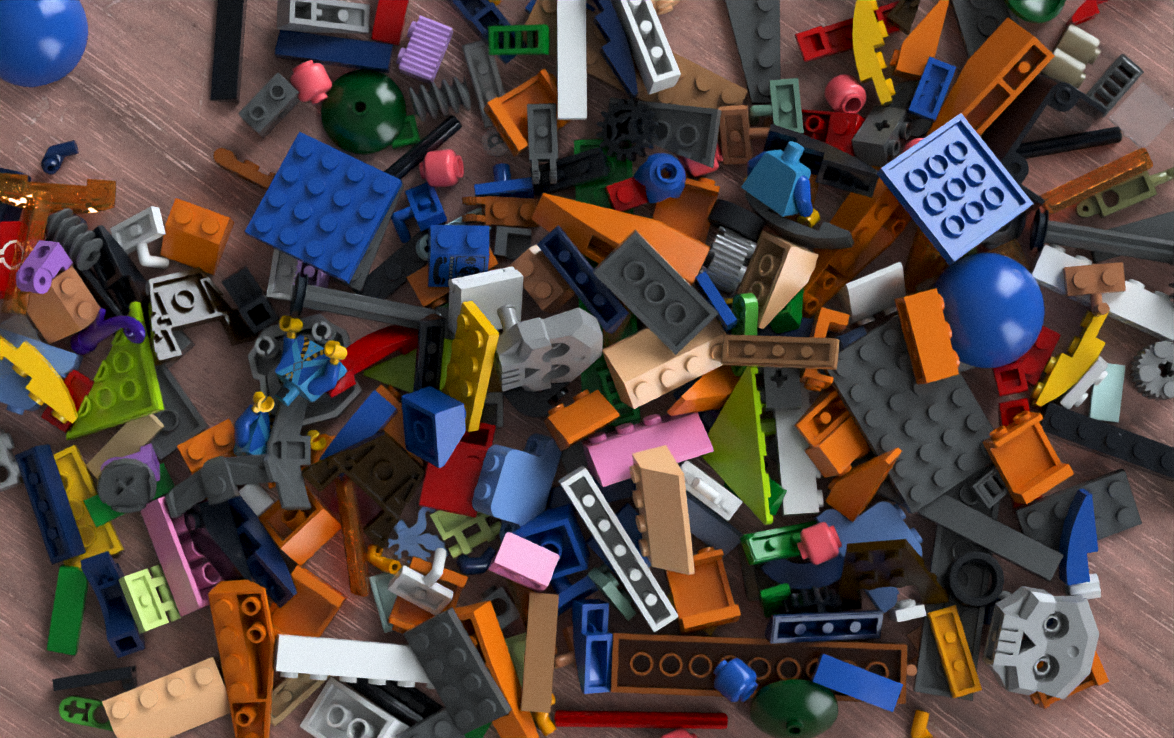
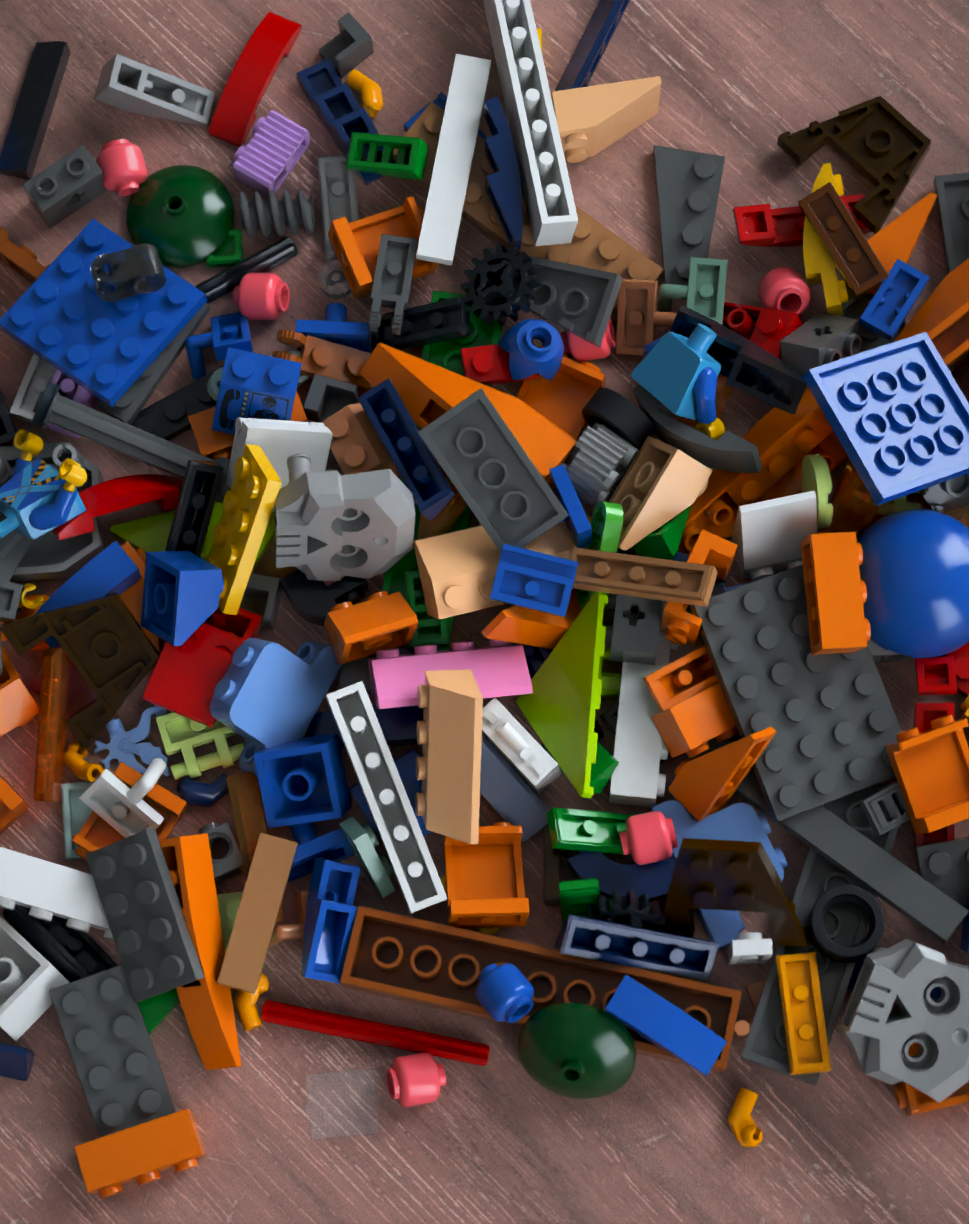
camera: 15 degrees right, 10 degrees down
(334, 51) = (160, 138): dark blue slope -> none
(343, 176) = (130, 271): none -> clear smoke piece
(524, 562) = (260, 792): bright pink panel -> none
(700, 368) = (534, 580): none -> blue plate
(886, 50) = (843, 239): none -> reddish brown plate
(898, 250) = (817, 477): none -> yellowish green tile

